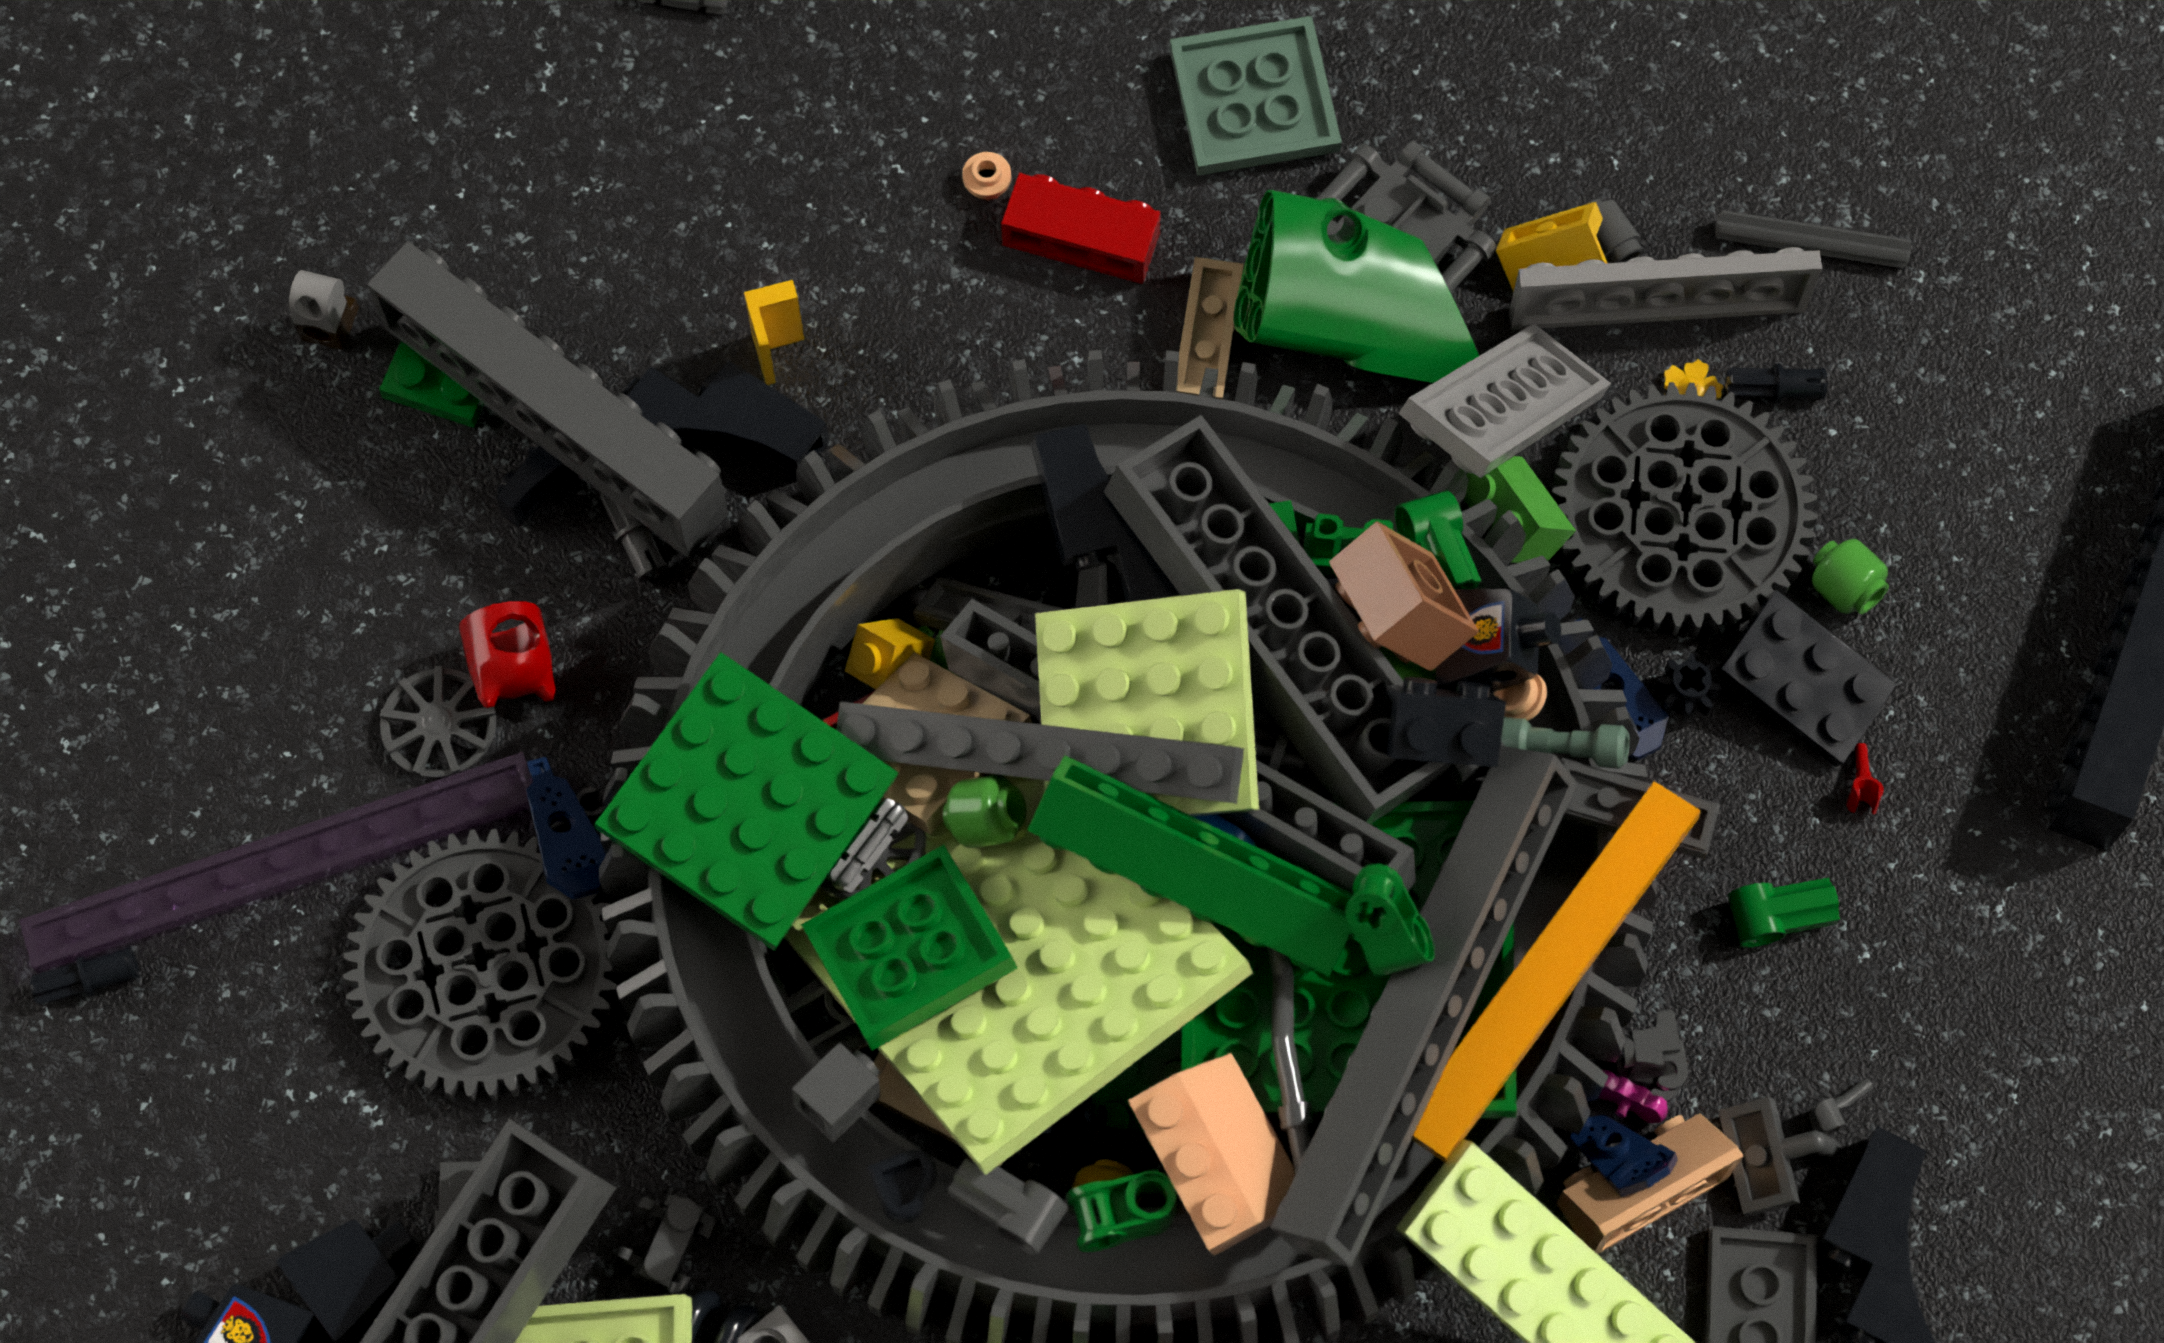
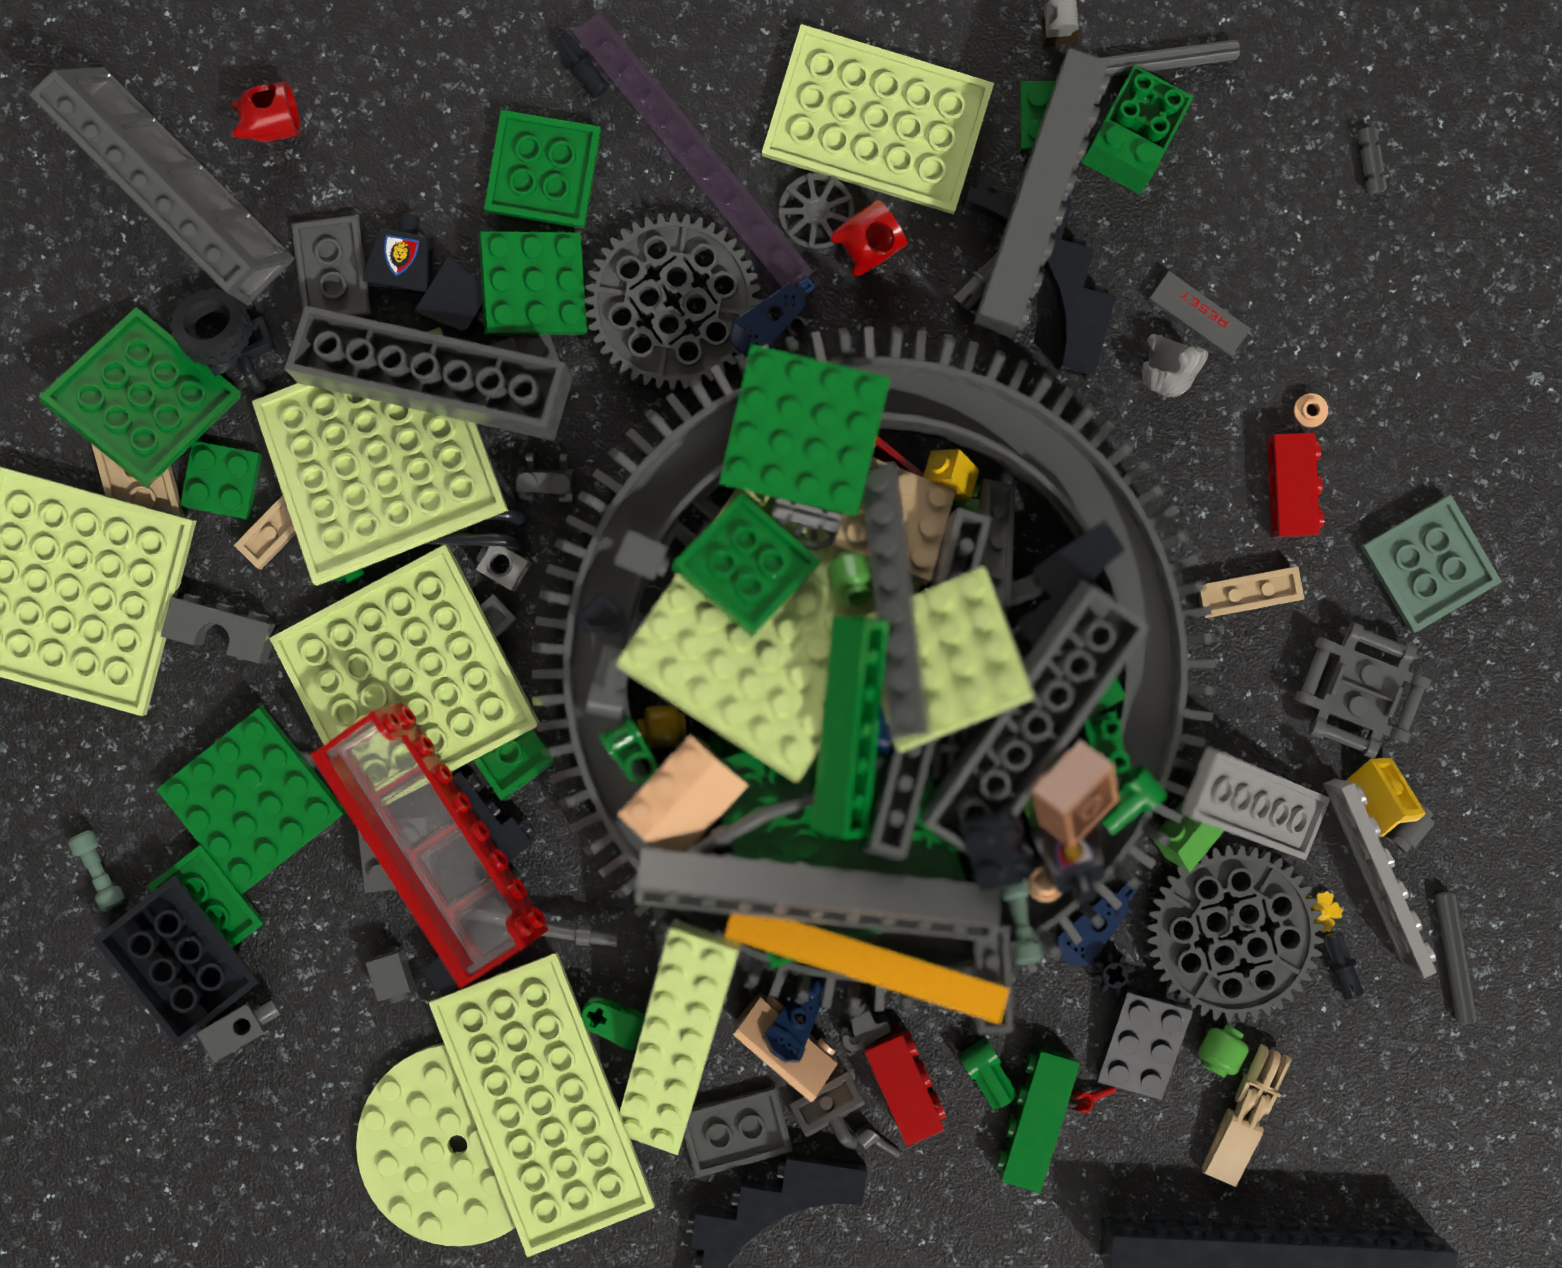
camera: 70 degrees right, 20 degrees up
(208, 1085) = (542, 169): none -> green plate
(345, 596) = (877, 119): none -> yellowish green plate
(369, 1155) = (532, 283): none -> green plate
(439, 175) = (1174, 57): none -> dark grey axle
(515, 258) = (1137, 129): none -> green slope
(773, 321) = (1154, 312): yellow panel -> none
(808, 262) = (1199, 314): none -> dark grey tile
(856, 324) = (1171, 366): none -> light grey hair
(1348, 294) = (1302, 676): green panel -> none
(1387, 922) = (851, 858): green piece -> none
(1633, 1098) = (837, 1015): dark pink piece -> none
(1763, 1025) = (906, 1085): none -> red brick
(1871, 862) = (1037, 1118): none -> green brick
(1981, 595) = (1237, 1132): none -> tan arm

